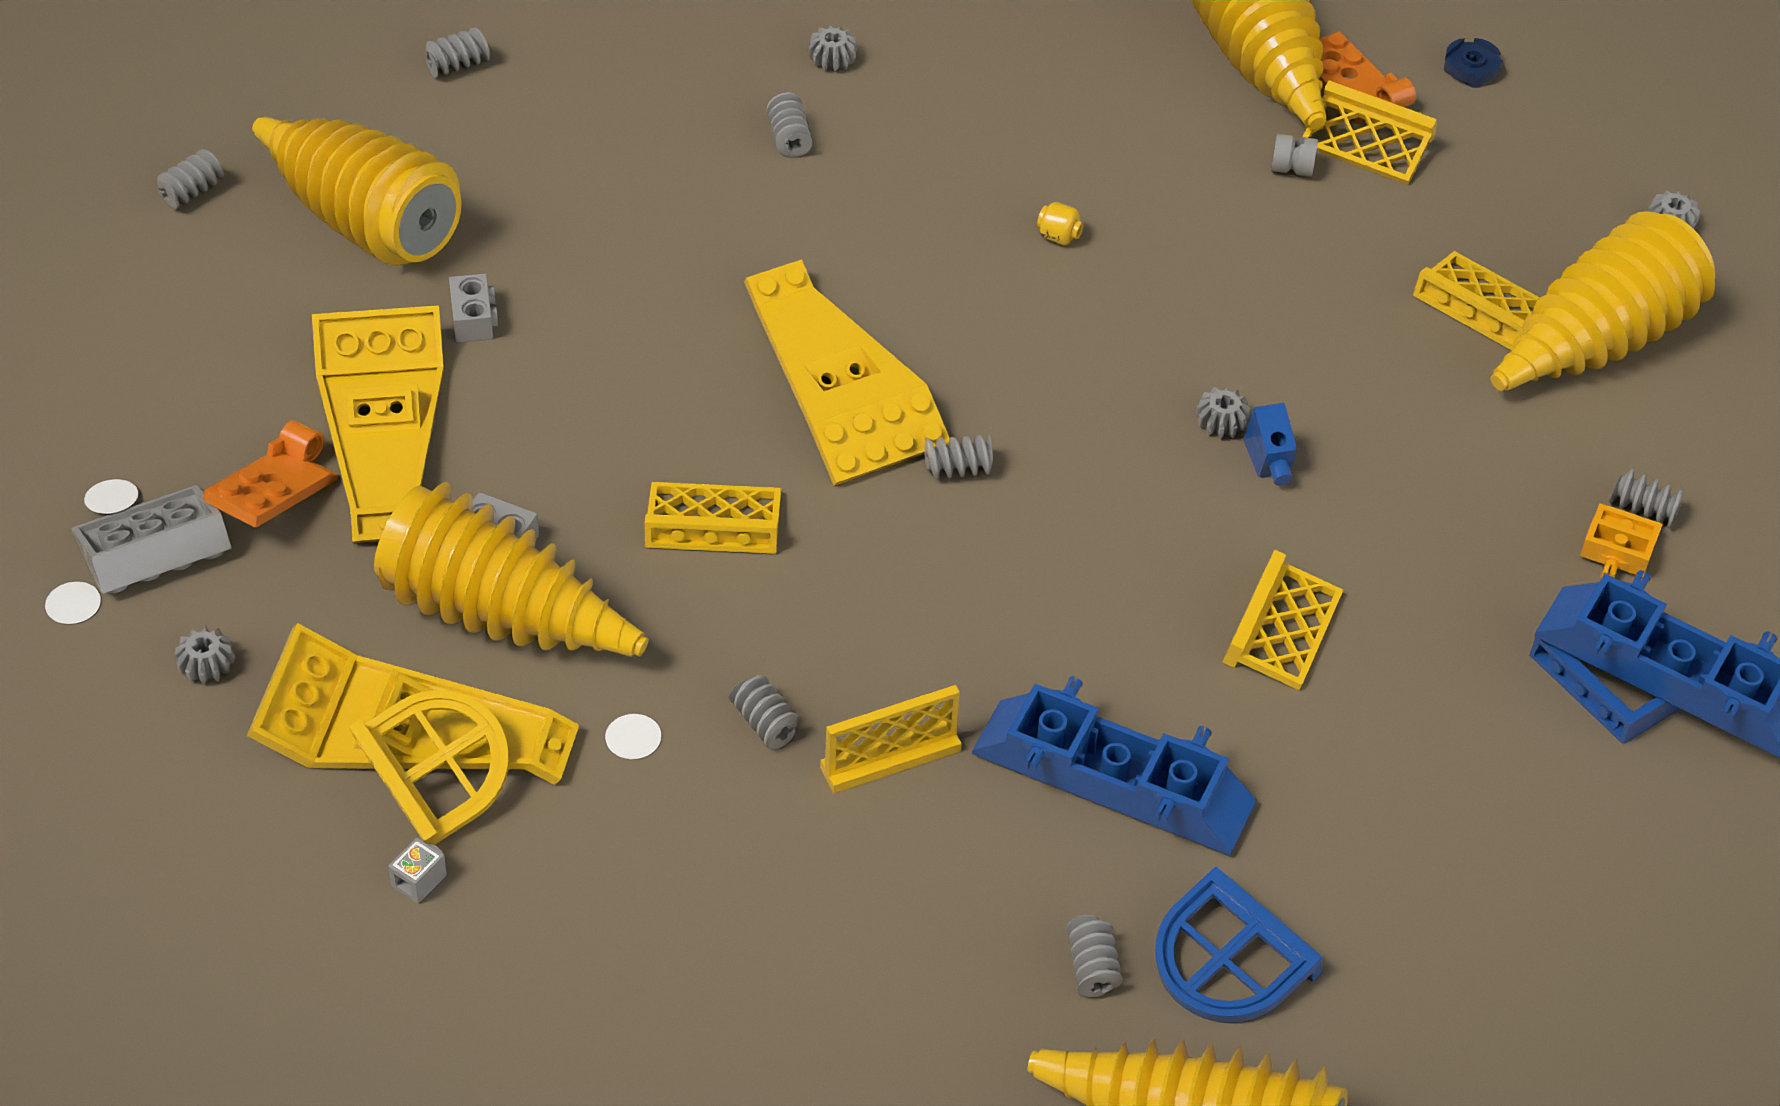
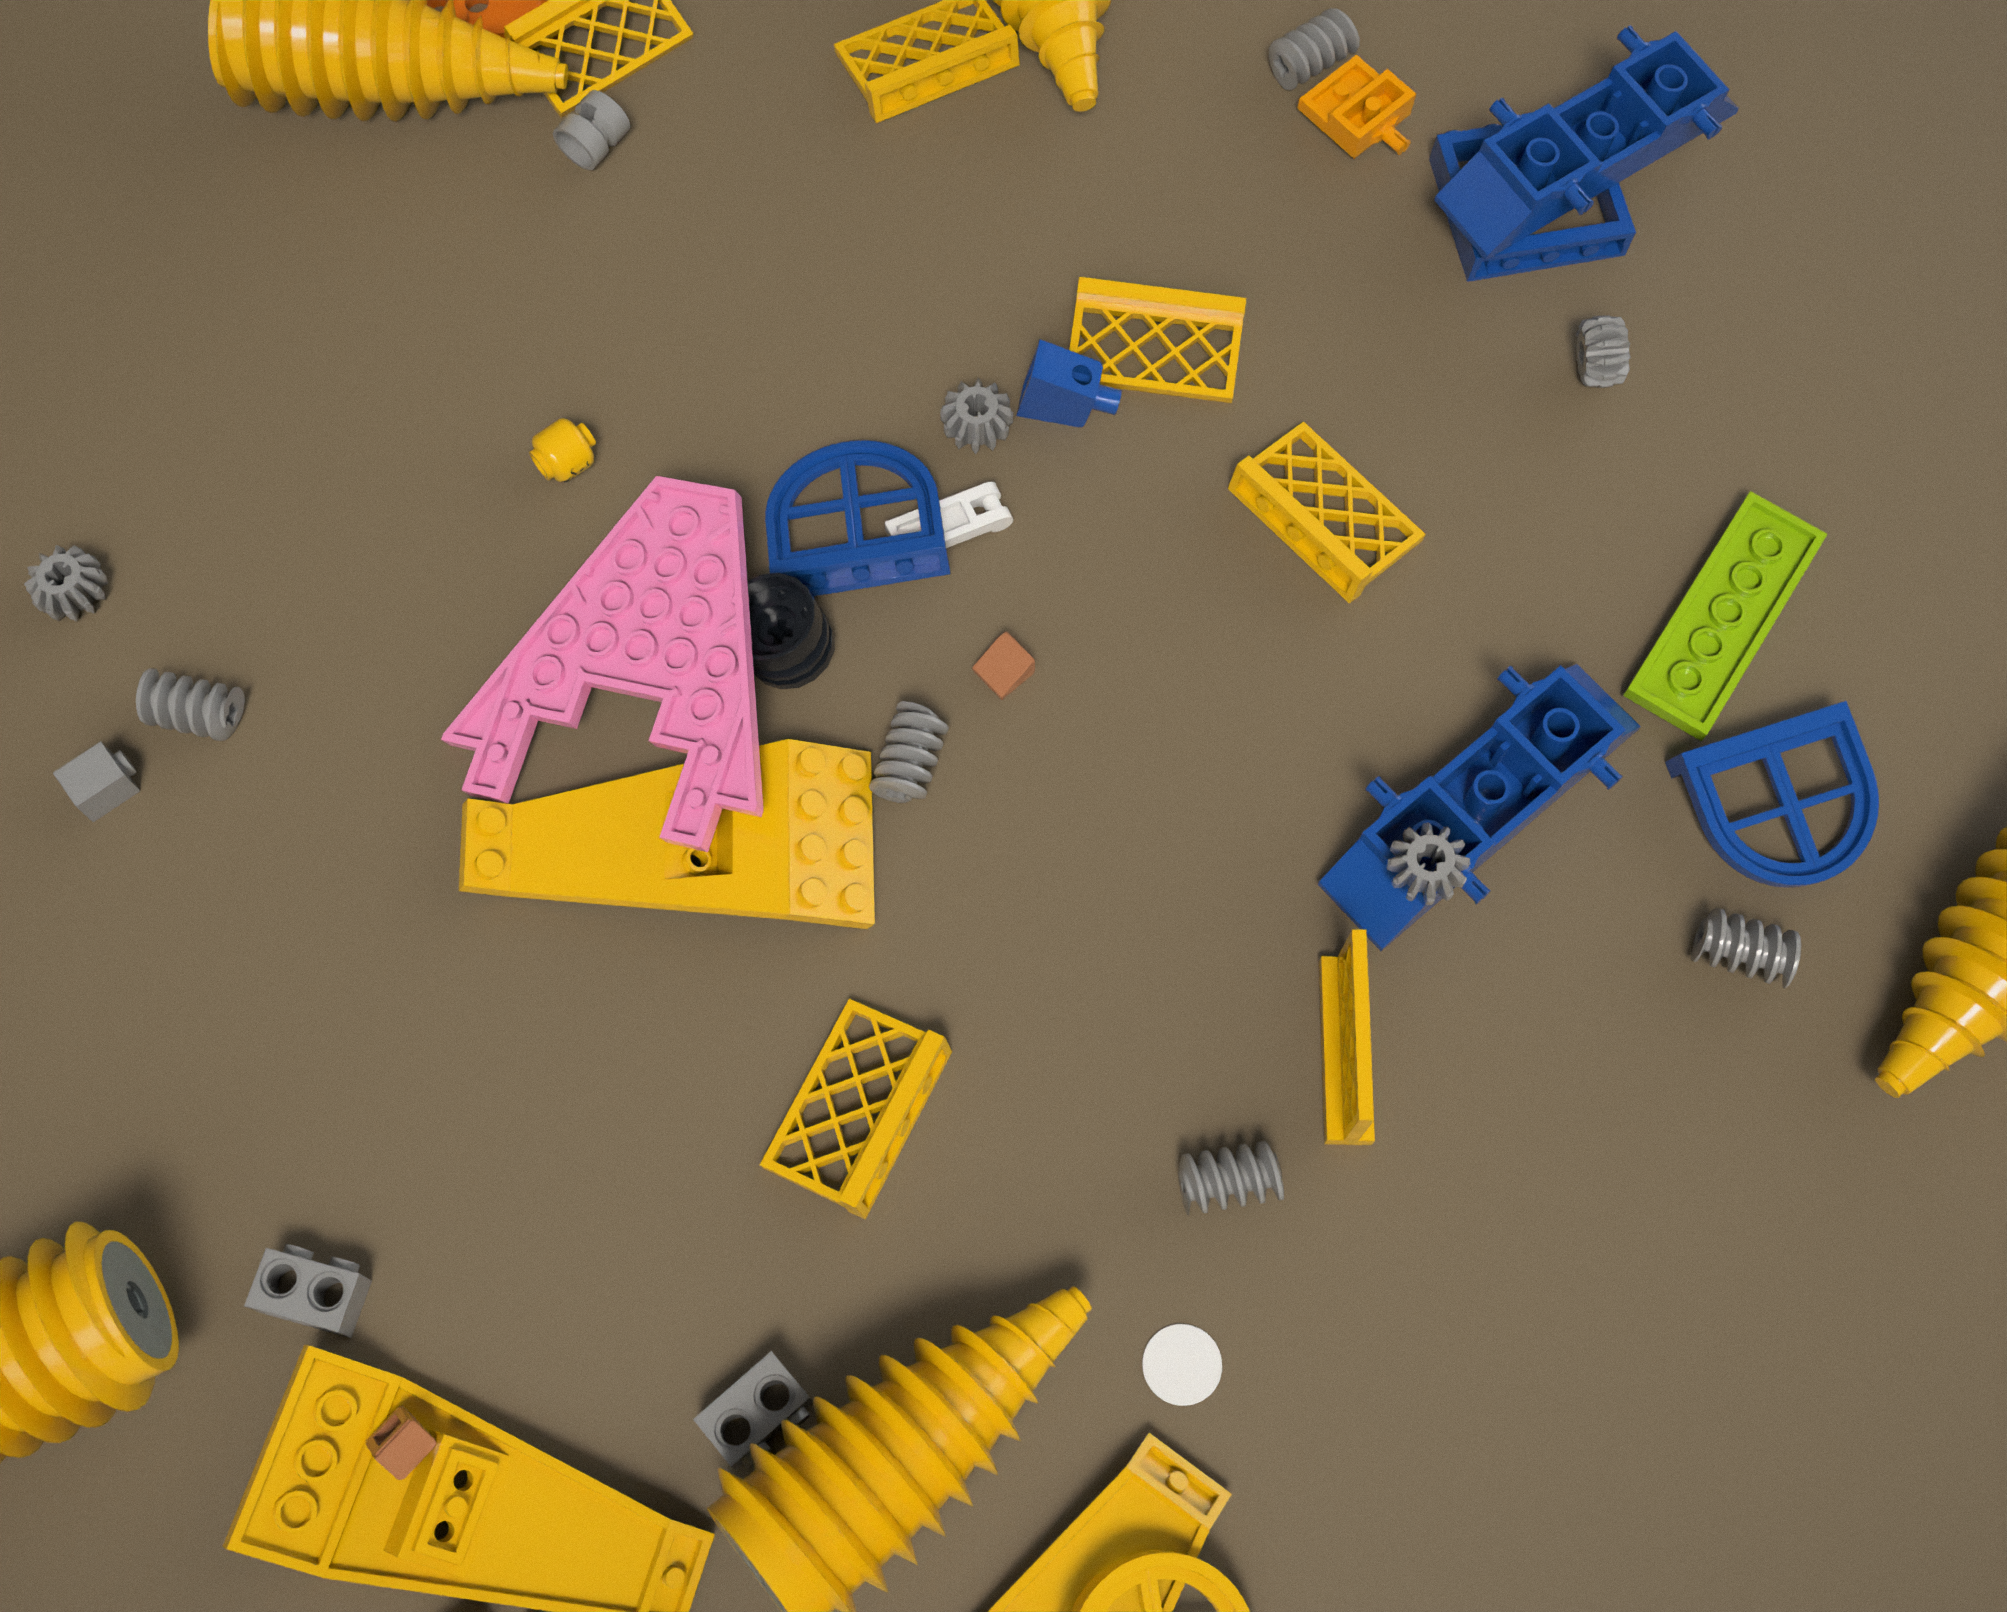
camera: 65 degrees left, 20 degrees up
(403, 371) = (400, 1443): none -> nougat slope
(720, 107) = (98, 780): none -> light grey brick
(949, 295) = (648, 618): none -> bright pink wing
(999, 359) = (787, 632): none -> black wheel
(1027, 713) = (1410, 873): none -> light grey gear
(1053, 489) = (1004, 666): none -> nougat slope
(1077, 387) = (859, 561): none -> blue window
(1137, 426) = (959, 517): none -> white plate
(1356, 880) = (1725, 616): none -> lime plate
(1374, 484) = (1165, 306): none -> yellow fence
(1515, 735) = (1602, 351): none -> light grey gear

